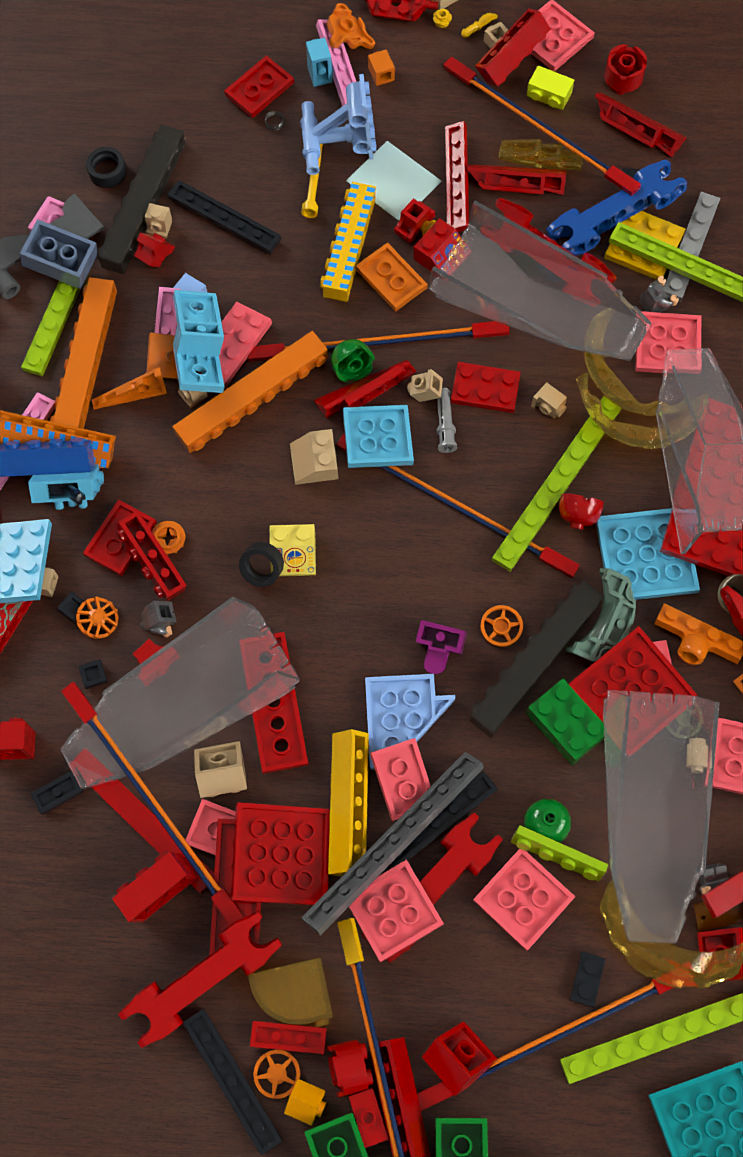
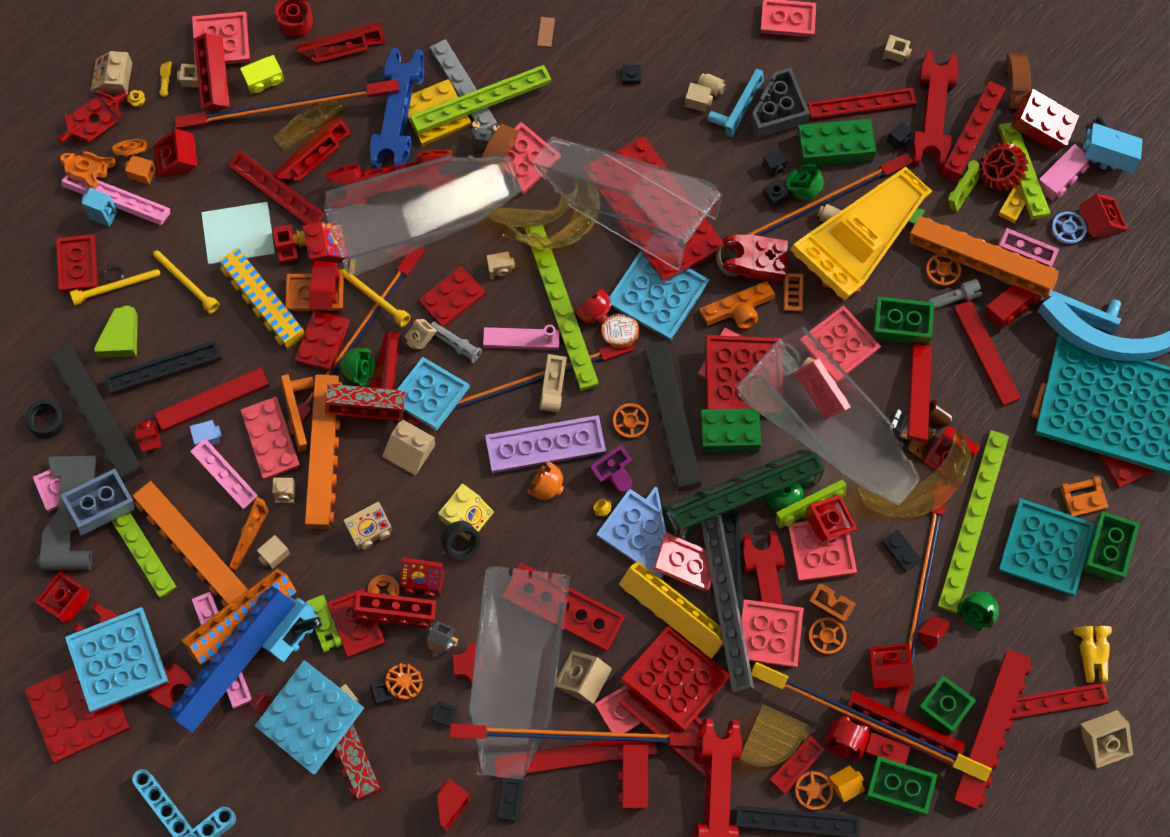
camera: 55 degrees left, 0 degrees up
(98, 511) = (328, 626): none -> lime plate
(129, 423) = (272, 552): none -> tan brick
(158, 220) = (126, 414): tan brick -> none
(162, 355) = (246, 485): orange plate -> none
(198, 341) = (258, 456): medium azure bracket -> none
(201, 558) = (421, 577): none -> red slope
(212, 479) = (368, 526): none -> tan slope
(224, 163) = (119, 335): none -> lime slope
(228, 274) = (212, 399): none -> red tile
(231, 109) = (79, 296): none -> yellow piece
(284, 321) = (288, 388): none -> orange piece
(318, 386) = (364, 402): none -> red brick
(353, 316) = (322, 340): none -> red plate
(358, 131) = (178, 222): light blue plate -> none
(377, 598) = (547, 482): none -> orange cylinder
(393, 44) = (130, 147): none -> orange wheel
(395, 664) = (602, 507): none -> yellow plate
(399, 275) = (323, 285): none -> red brick
(415, 569) = (545, 443): none -> lavender plate
(419, 81) = (175, 154): none -> red slope
(427, 359) = (400, 317): none -> yellow piece
(441, 970) = (827, 636): none -> orange wheel
(474, 955) = (839, 607): none -> orange brick
(476, 530) = (552, 383): none -> tan plate
(498, 474) = (522, 338): none -> bright pink piece
(515, 777) = (798, 467): none -> dark green window
(529, 1074) = (933, 631): none -> red tile
(556, 882) = (830, 519): none -> red slope
(579, 550) = (620, 330): none -> tile
(589, 1105) = (979, 609): none -> green cylinder
(614, 619) = (686, 348): sand green windscreen -> none
(663, 311) = (501, 141): none -> dark orange arch
(680, 774) = (822, 389): none -> coral plate

